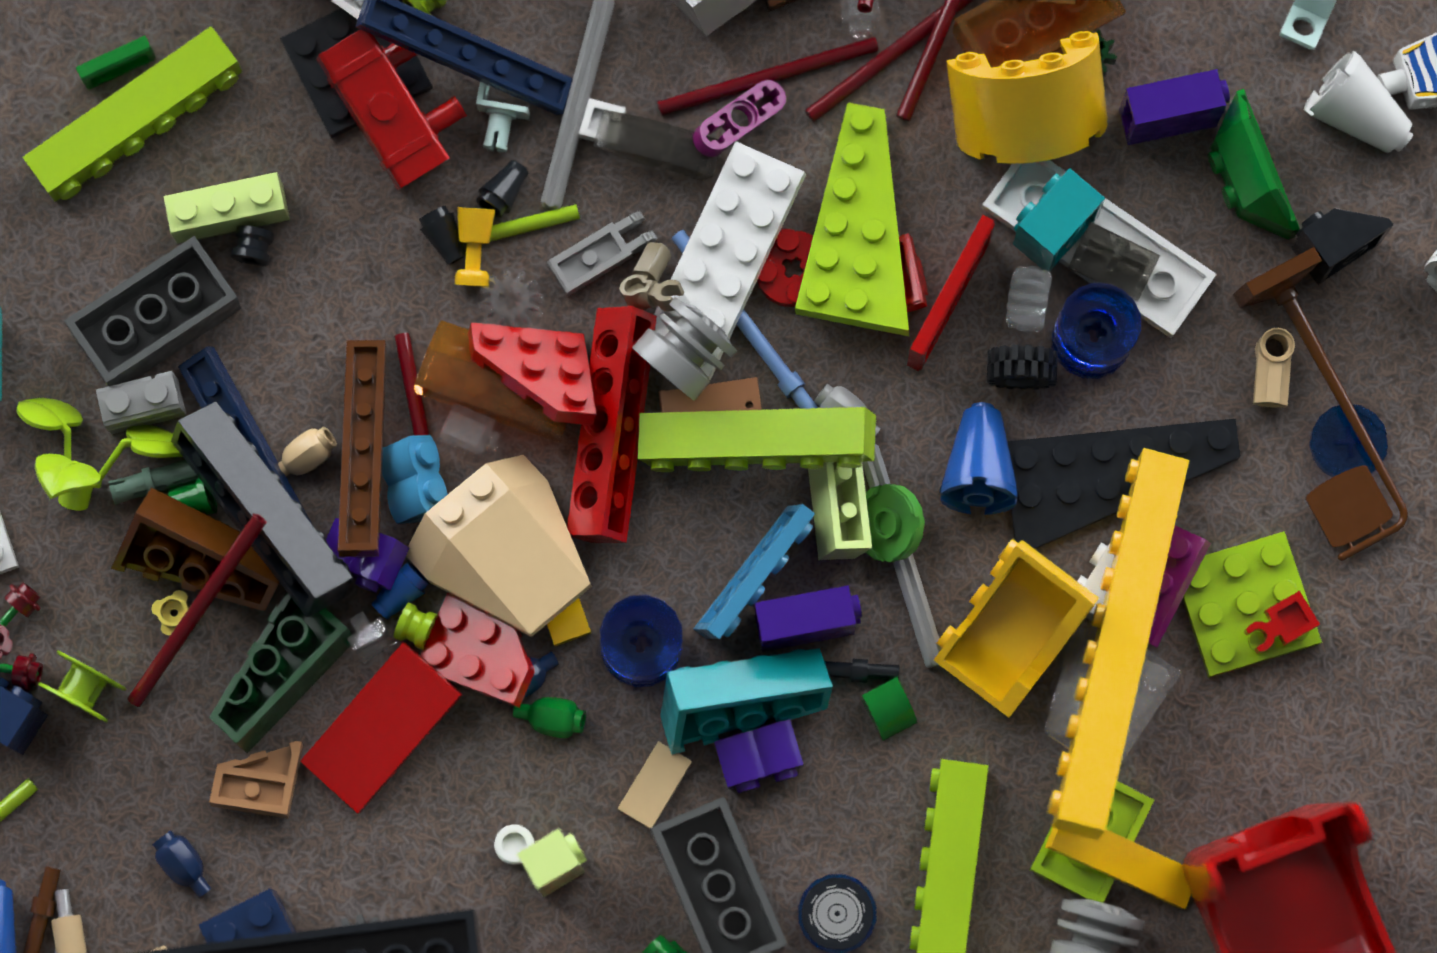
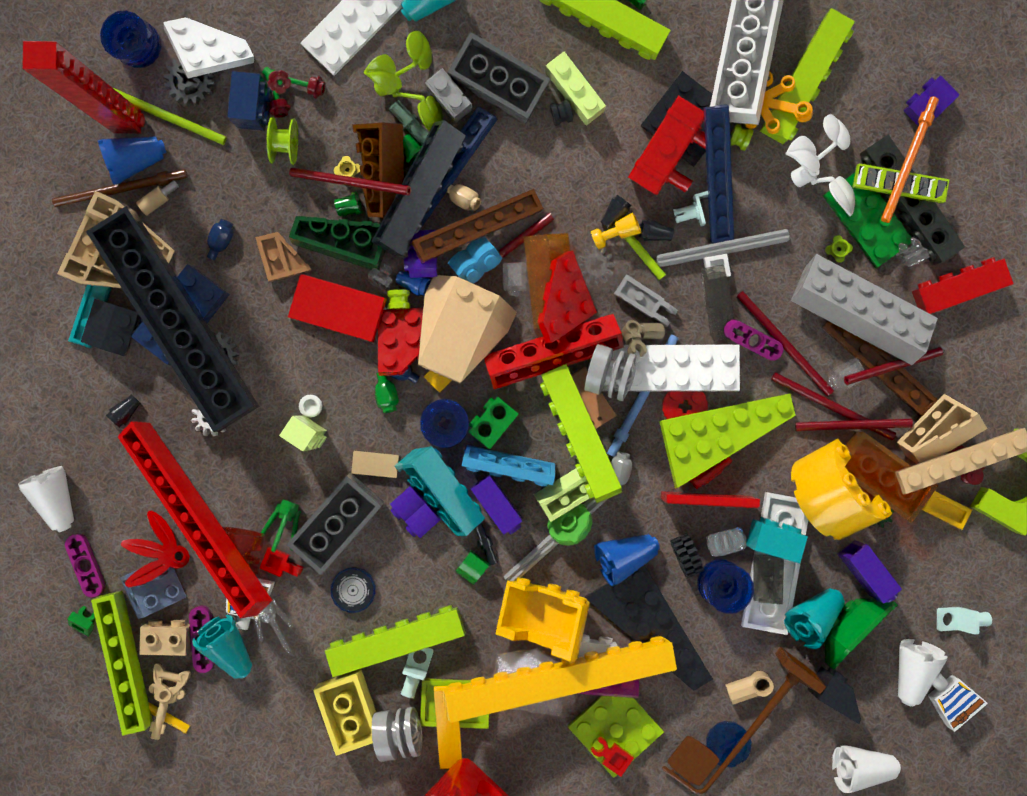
camera: 65 degrees right, 10 degrees up
(230, 635) = (351, 205): none -> green bush
(684, 566) = (497, 425): none -> green brick
(1012, 874) = (415, 673): none -> light aqua bracket
(1206, 221) = (814, 617): none -> teal cone

